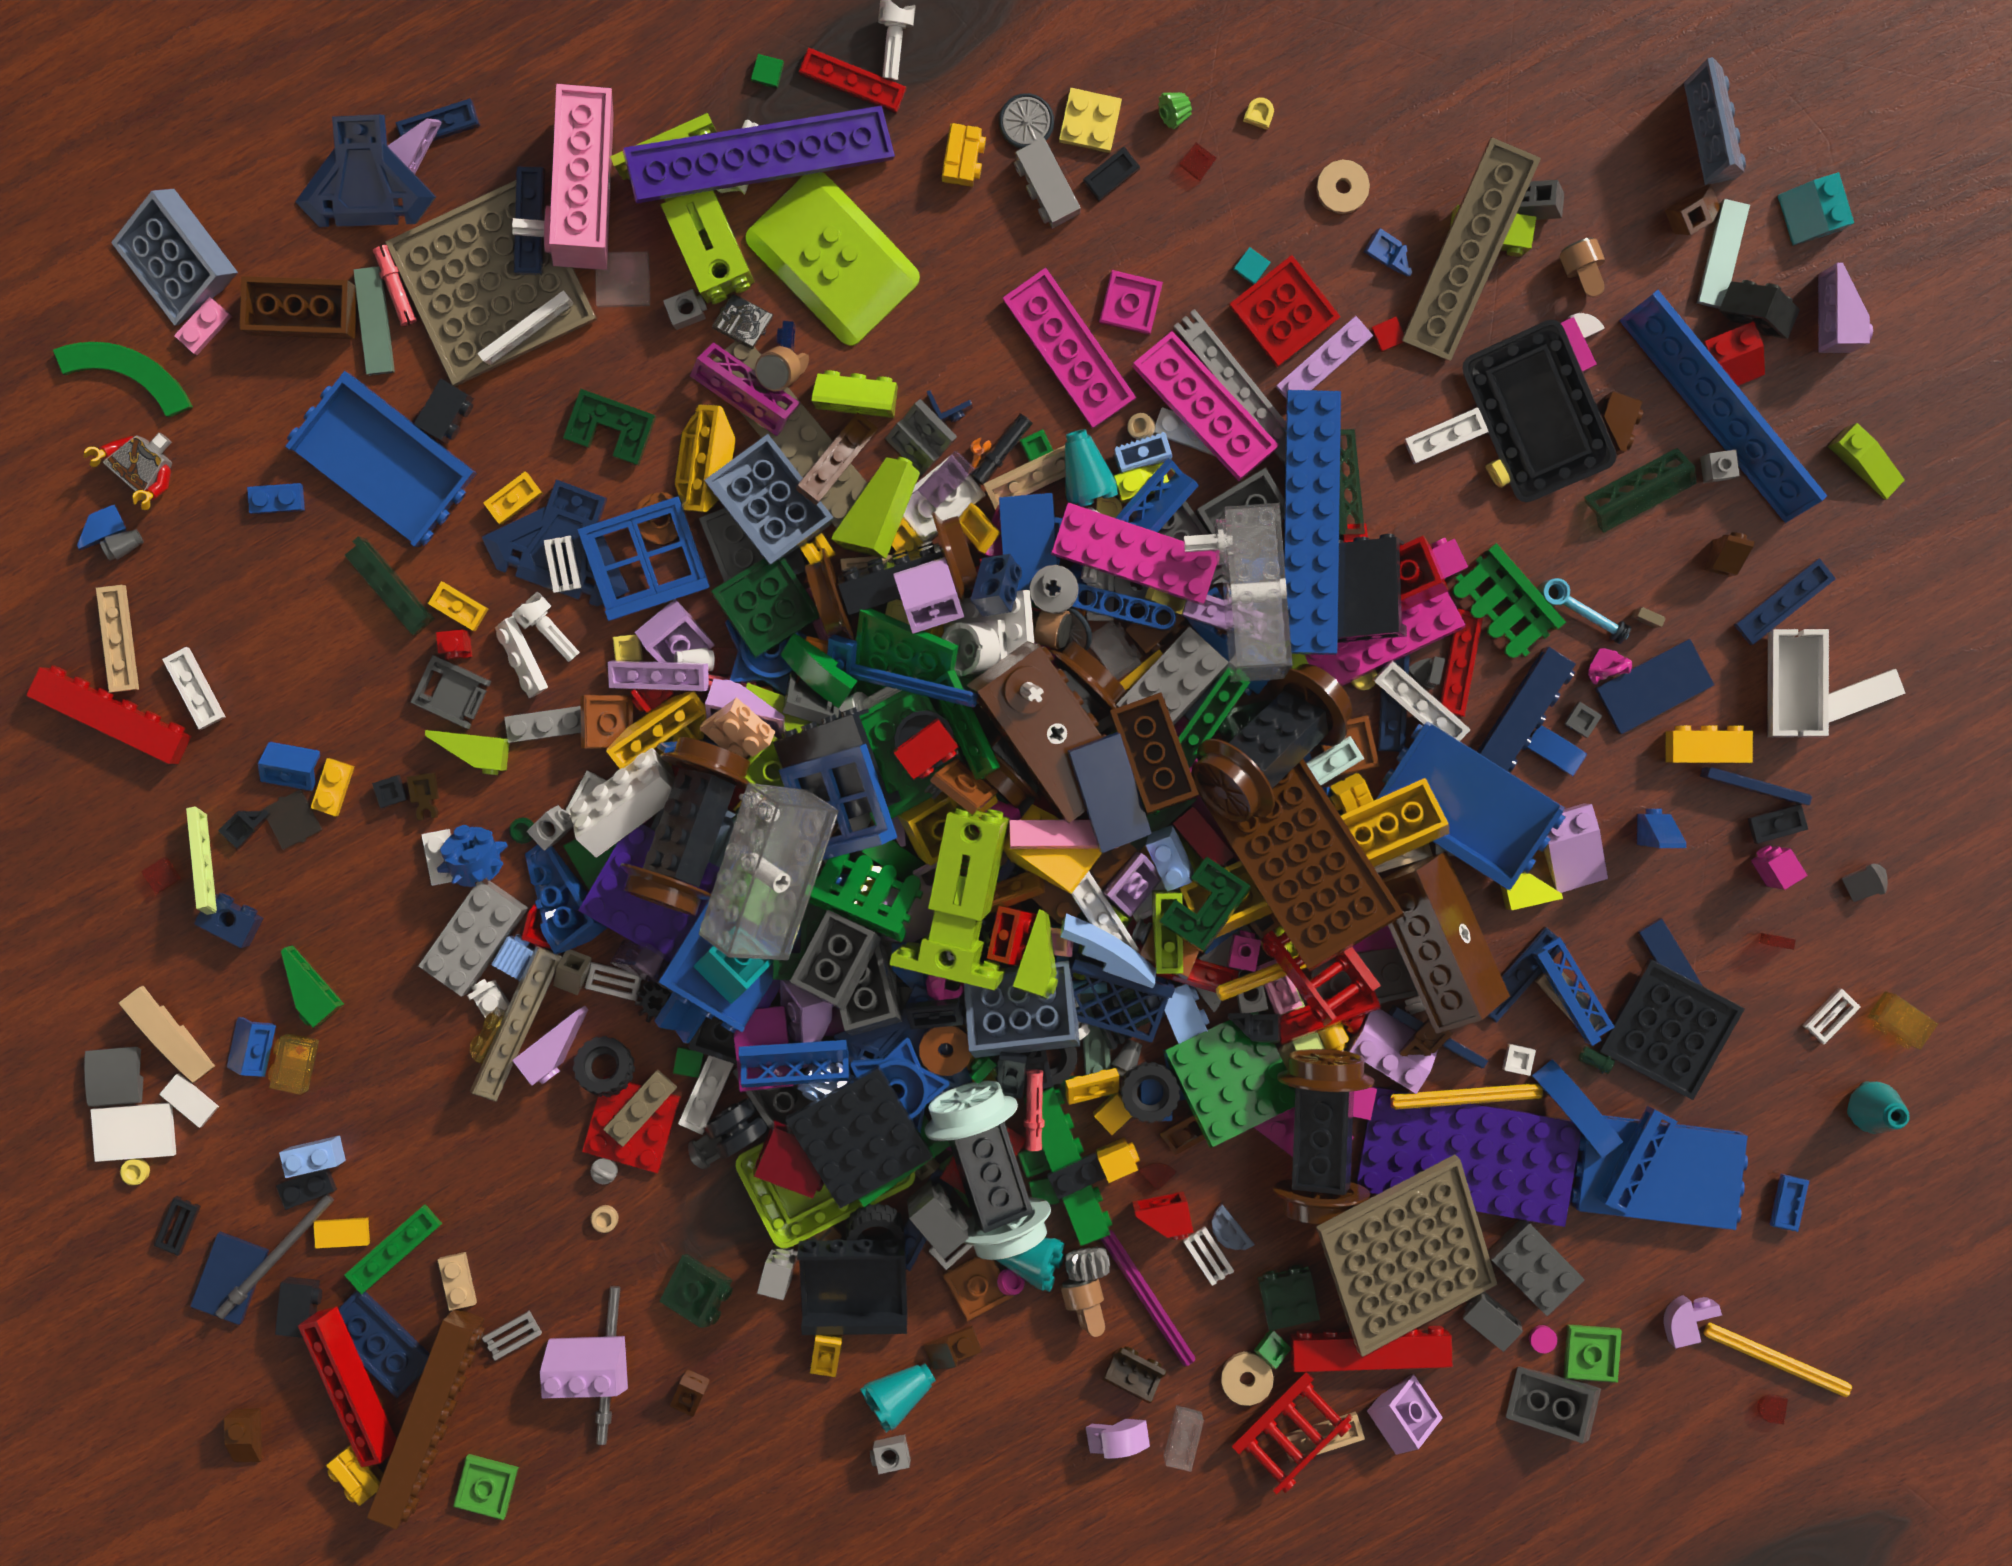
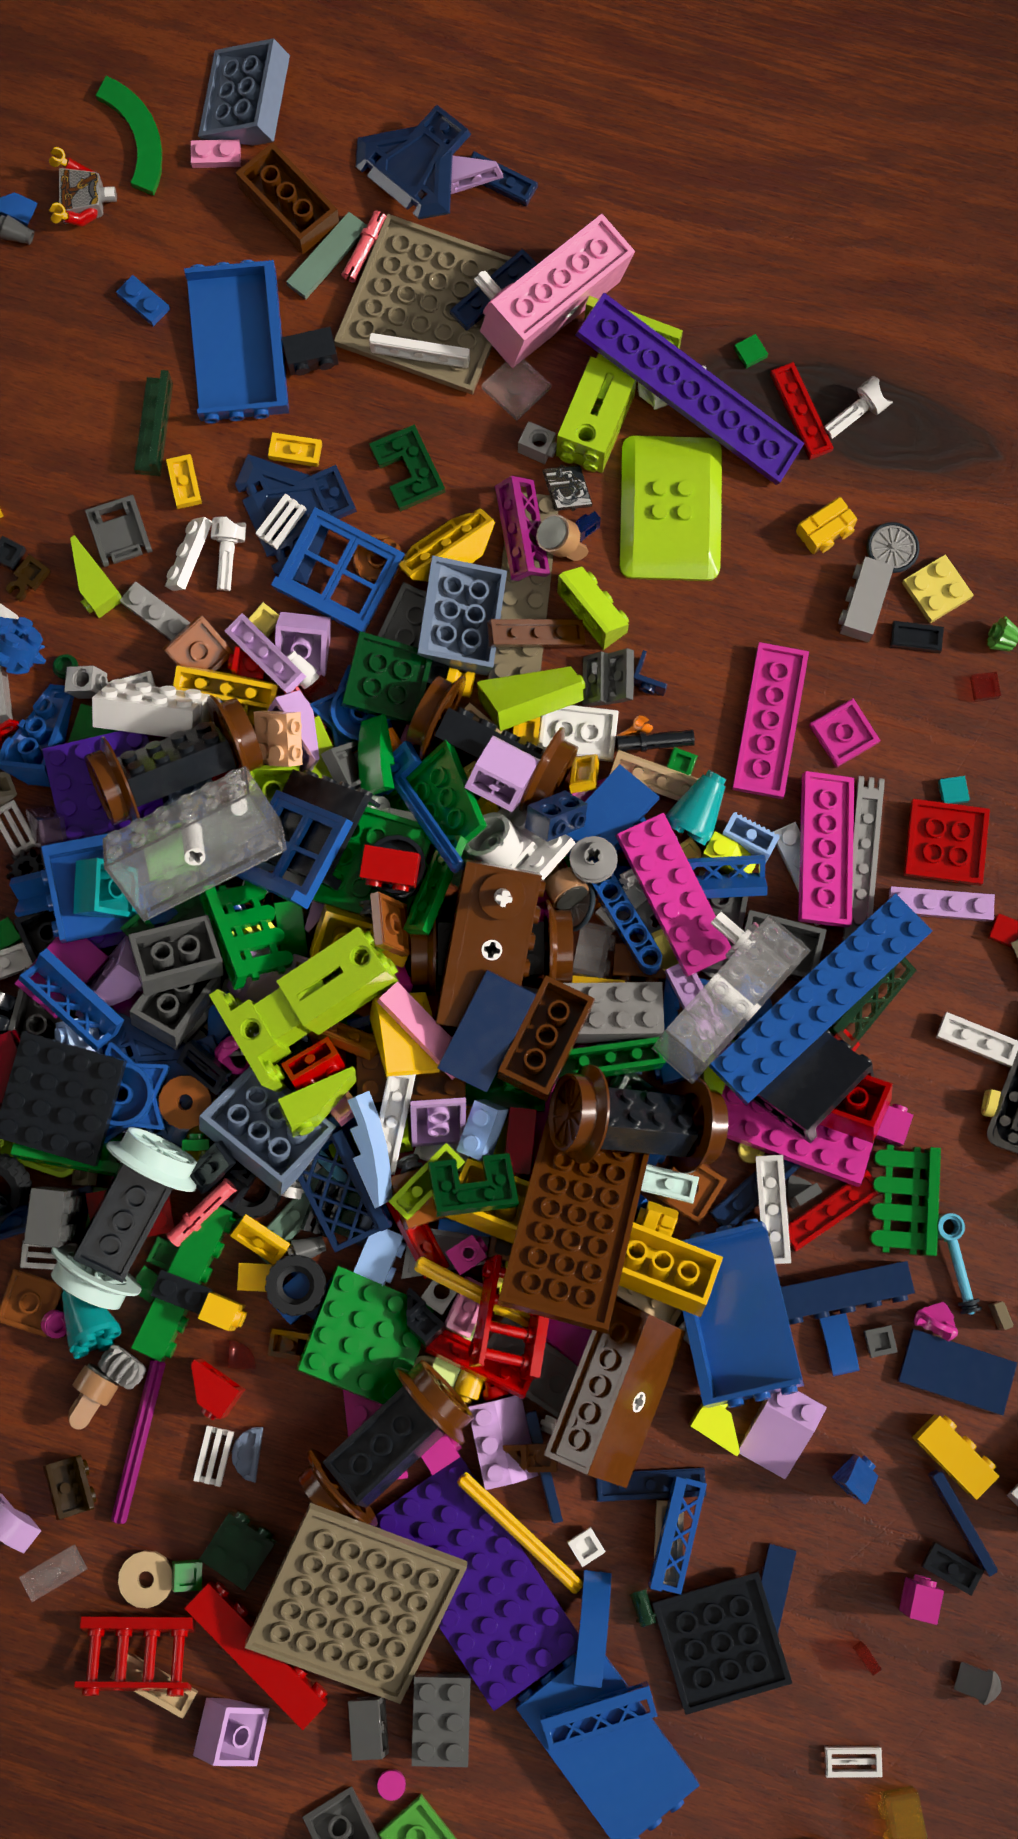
camera: 45 degrees right, 10 degrees down
(454, 644) = (154, 502): red brick -> none
(946, 479) = (596, 722): clear purple slope -> none
(1141, 426) = (768, 818): tan tile -> none

